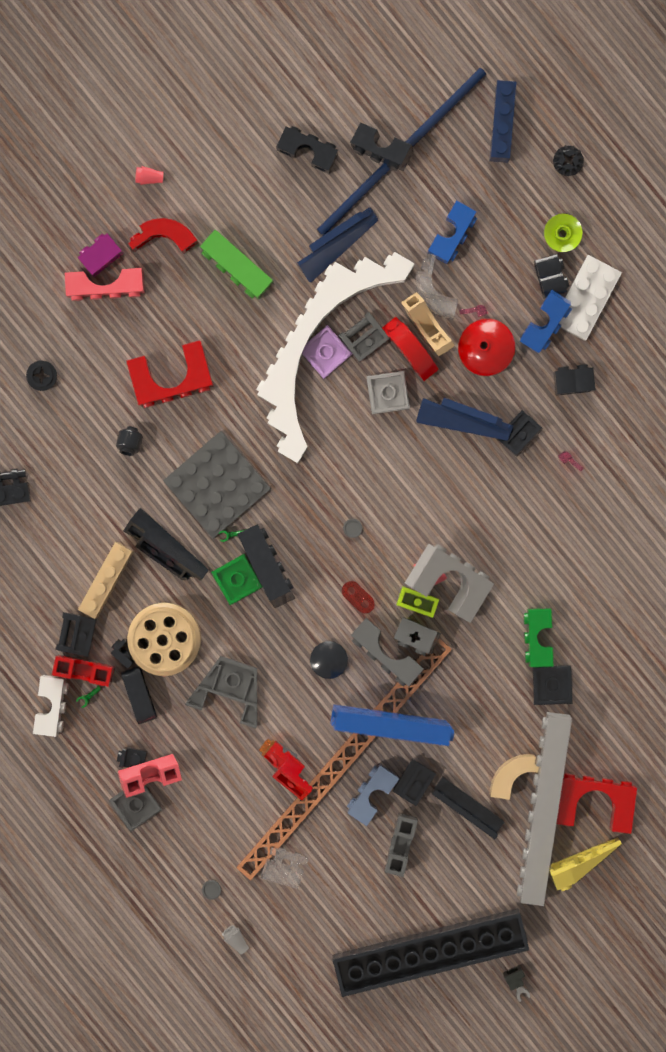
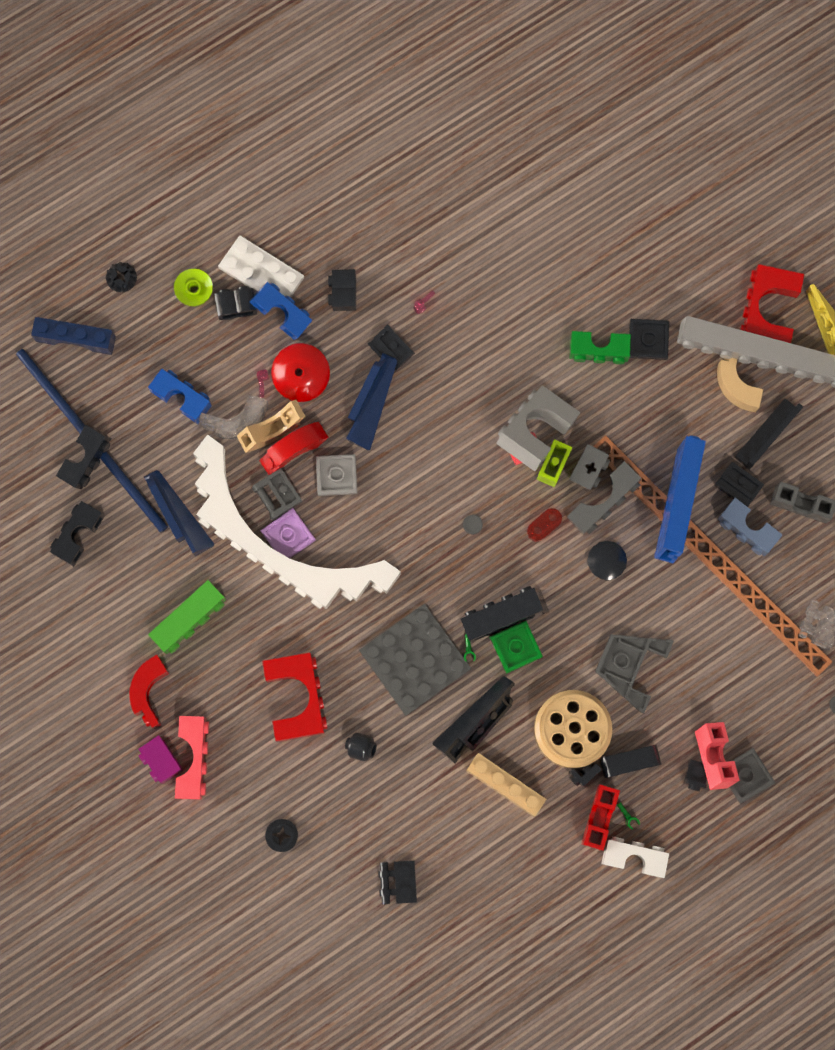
camera: 85 degrees left, 10 degrees down
(82, 634) = (561, 816): black plate -> none
(148, 176) = (83, 701): coral cone -> none
(287, 768) = (717, 611): red plate -> none

